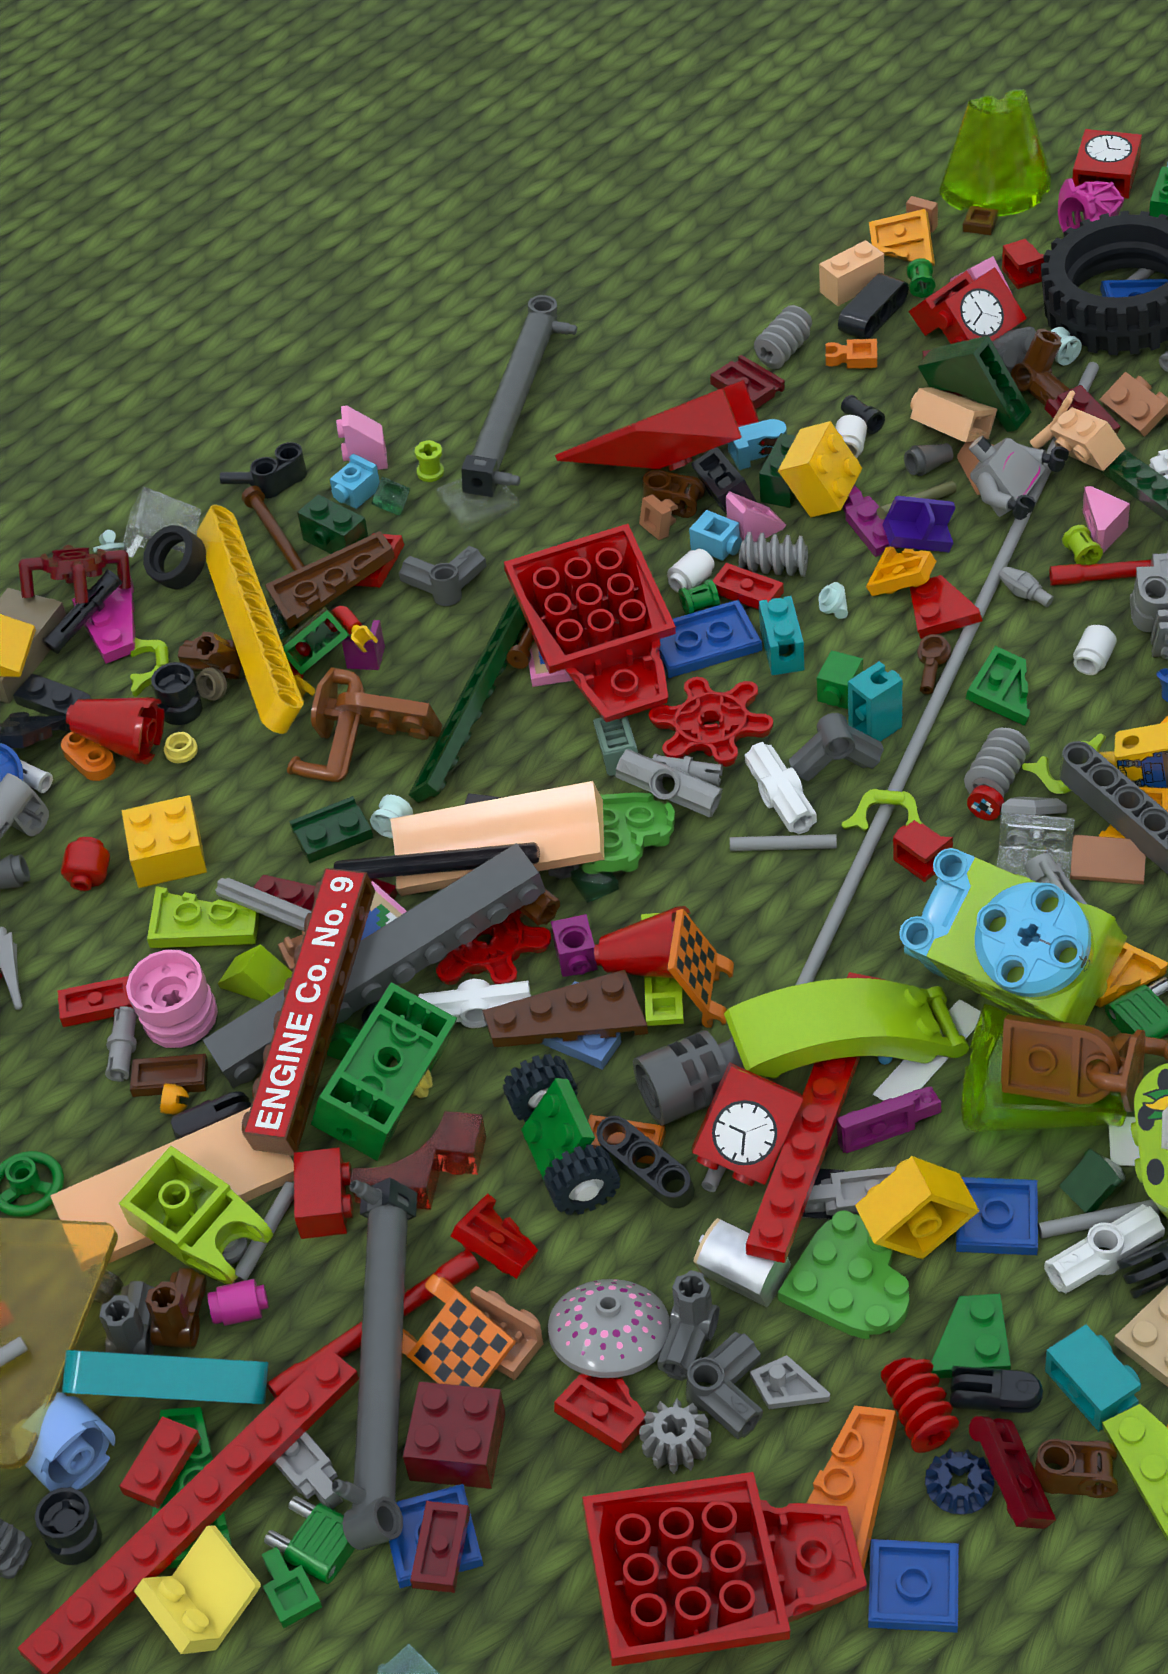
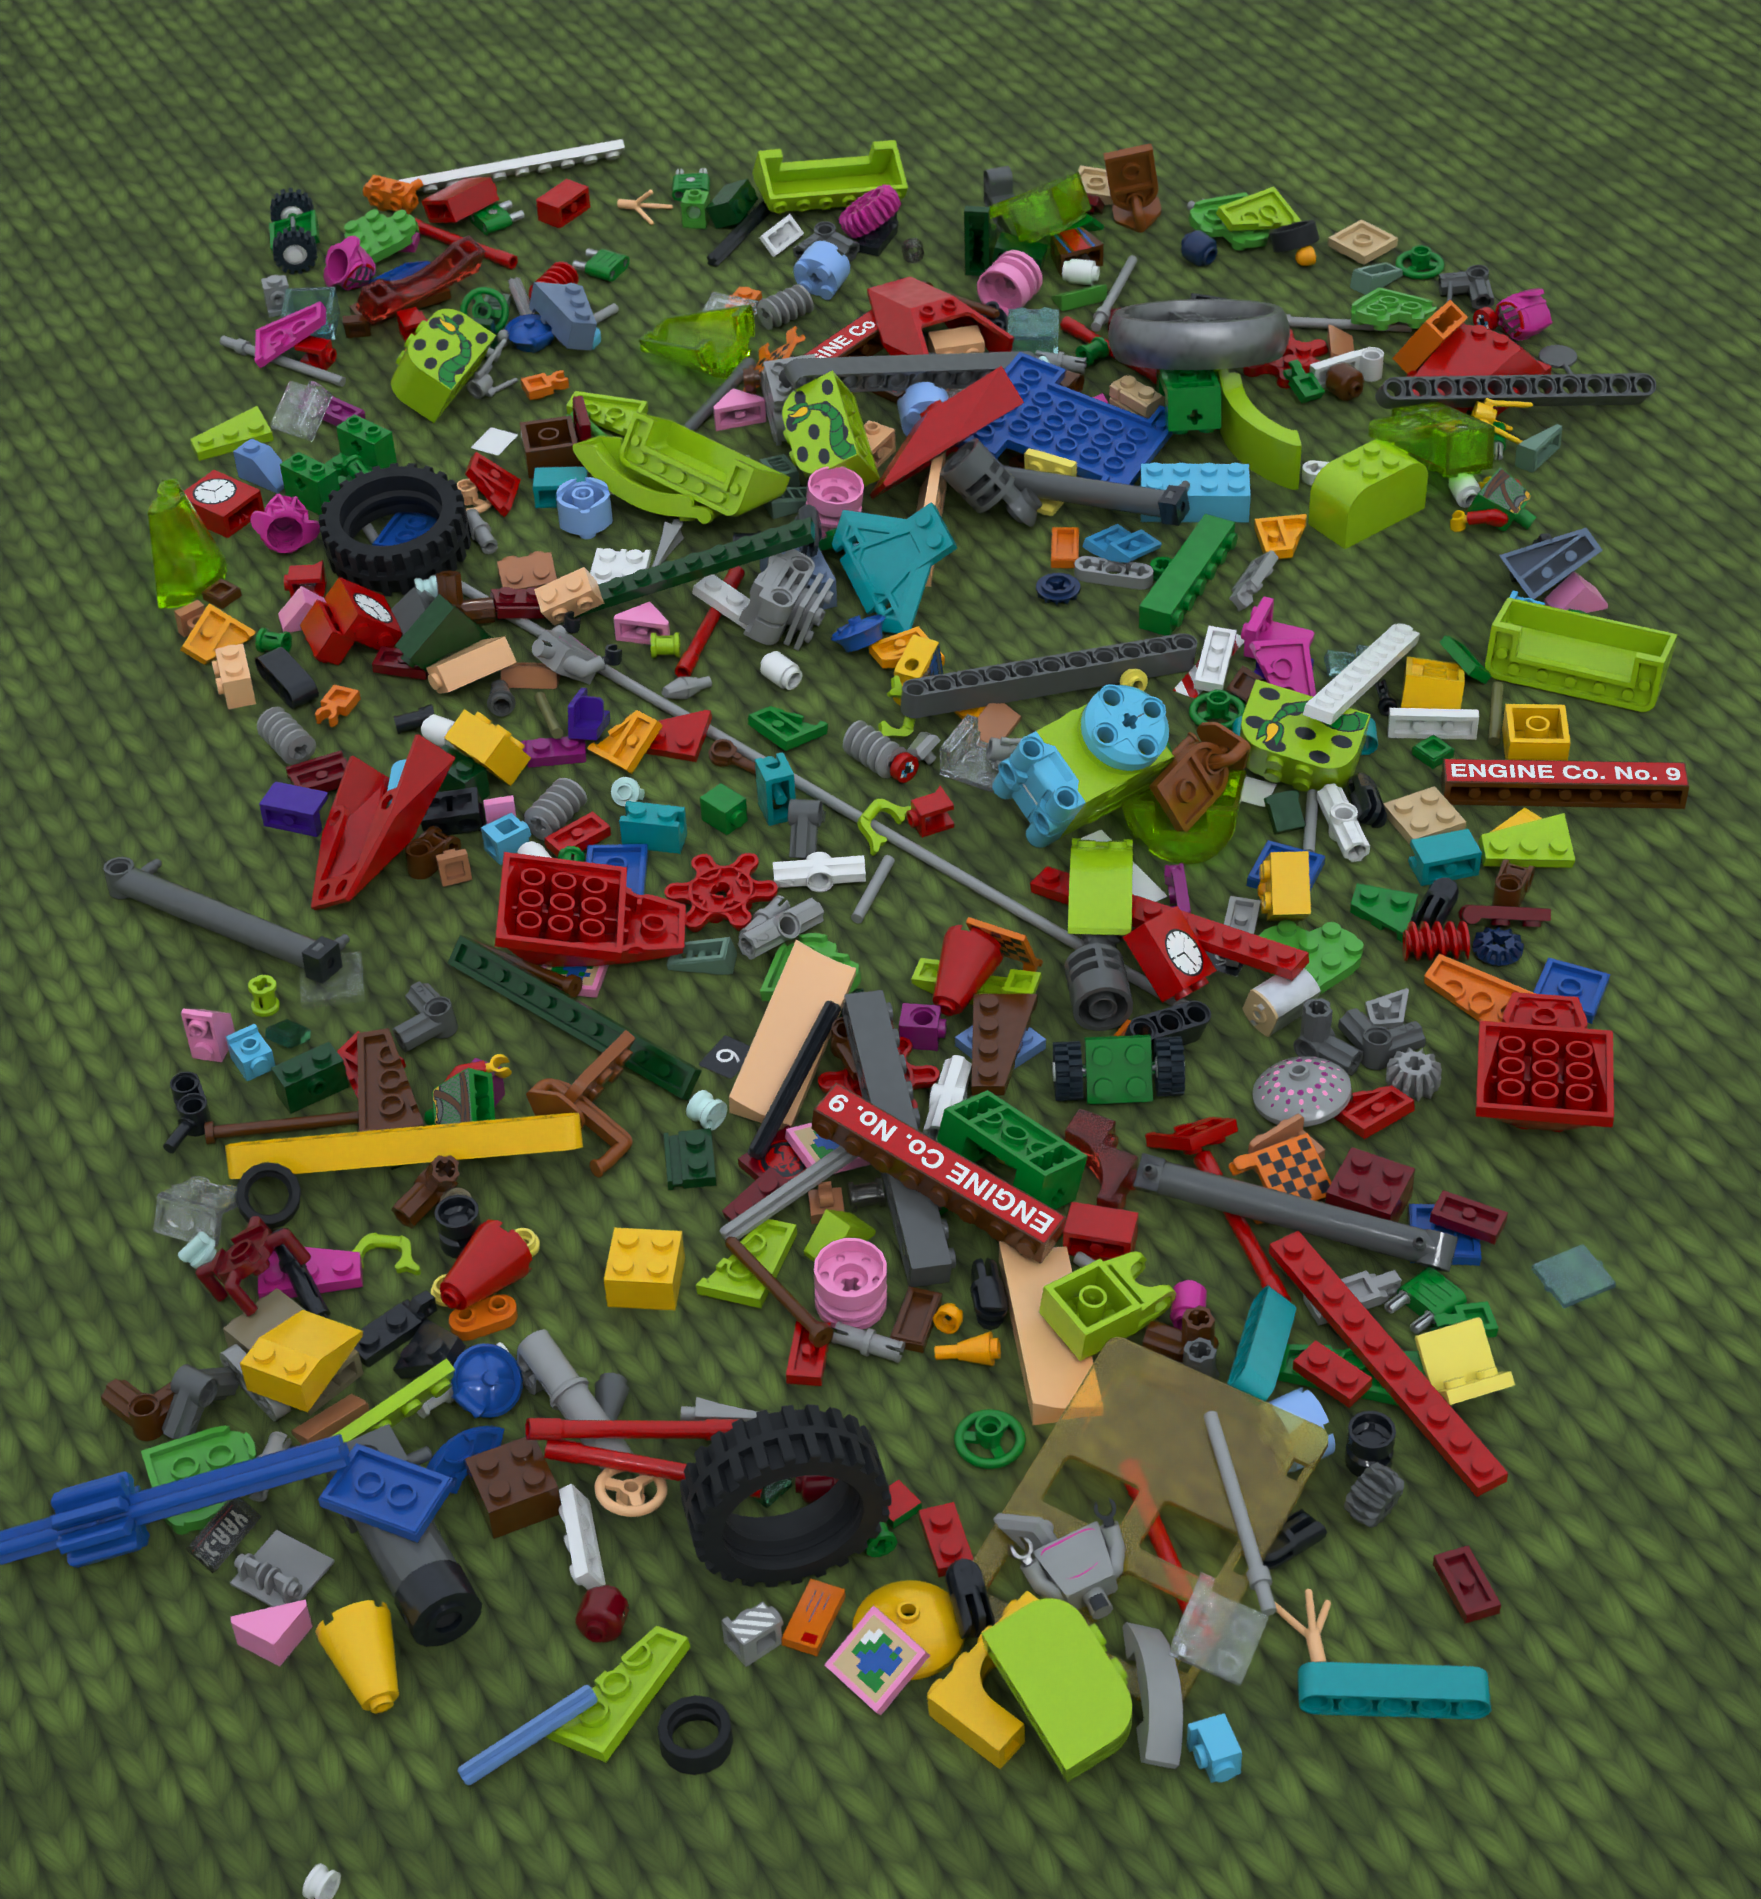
camera: 75 degrees left, 5 degrees down
(85, 863) = (635, 1332): red head -> none
(104, 995) = (819, 1333): none -> reddish brown bar
(133, 1136) = (978, 1349): none -> light orange cone
(686, 376) = (293, 808): none -> dark purple panel
(1045, 435) = (526, 618): light nougat plant -> none

